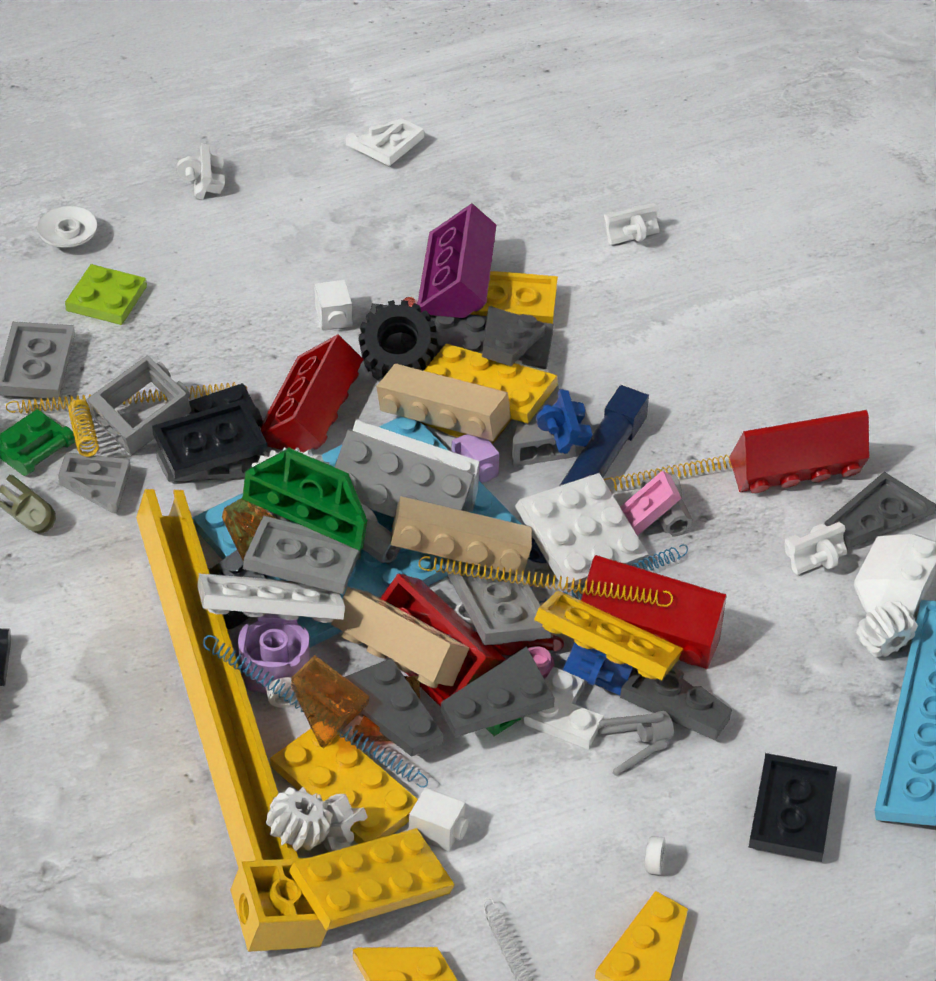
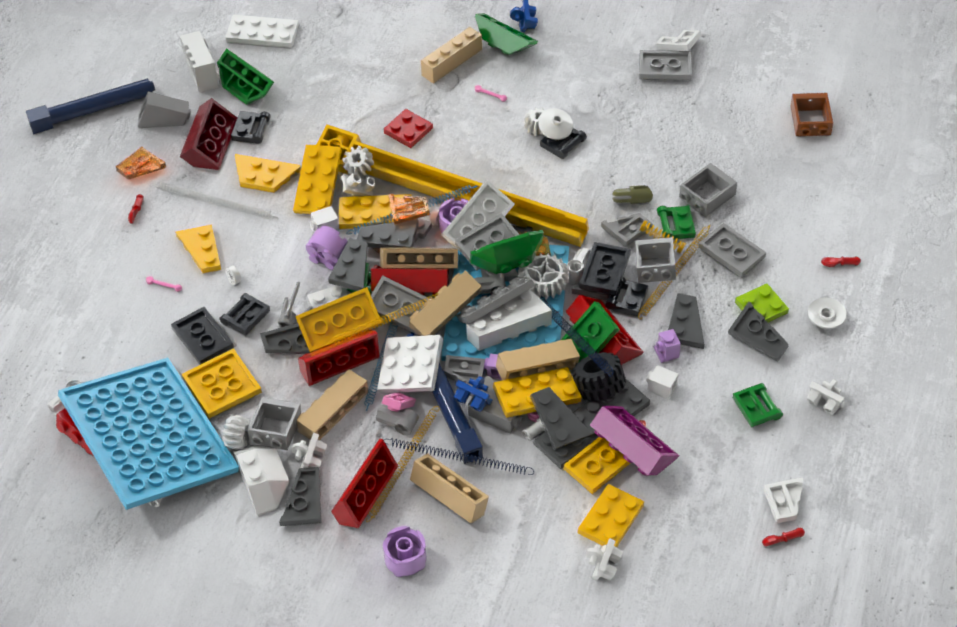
camera: 135 degrees right, 5 degrees up
(124, 871) = (408, 128): none -> plate
(164, 266) = (756, 332): none -> dark grey wing
(207, 344) = (687, 322): none -> dark grey wing
(220, 483) = (577, 265): none -> white piece
(271, 328) = (667, 346): none -> lavender brick
(284, 223) = (753, 408): none -> green plate
(344, 379) = (595, 328): none -> green plate
(374, 370) = (580, 337): none -> piece
(447, 128) = (773, 539): none -> red piece
(492, 761) = (325, 246): none -> lavender brick
(515, 482) = (463, 368): none -> light grey wing
(569, 254) = (610, 516): none -> yellow plate
(656, 400) = (457, 456): none -> piece
(700, 778) = (248, 317): none -> black plate
(707, 384) = (449, 488): none -> tan brick
(738, 573) = (332, 405): none -> tan brick
(776, 970) = (150, 280): none -> bright pink hinge
(829, 369) = (404, 551): none -> lavender brick
(832, 572) = (269, 408): none -> light grey window
(834, 721) = (221, 383): none -> yellow plate

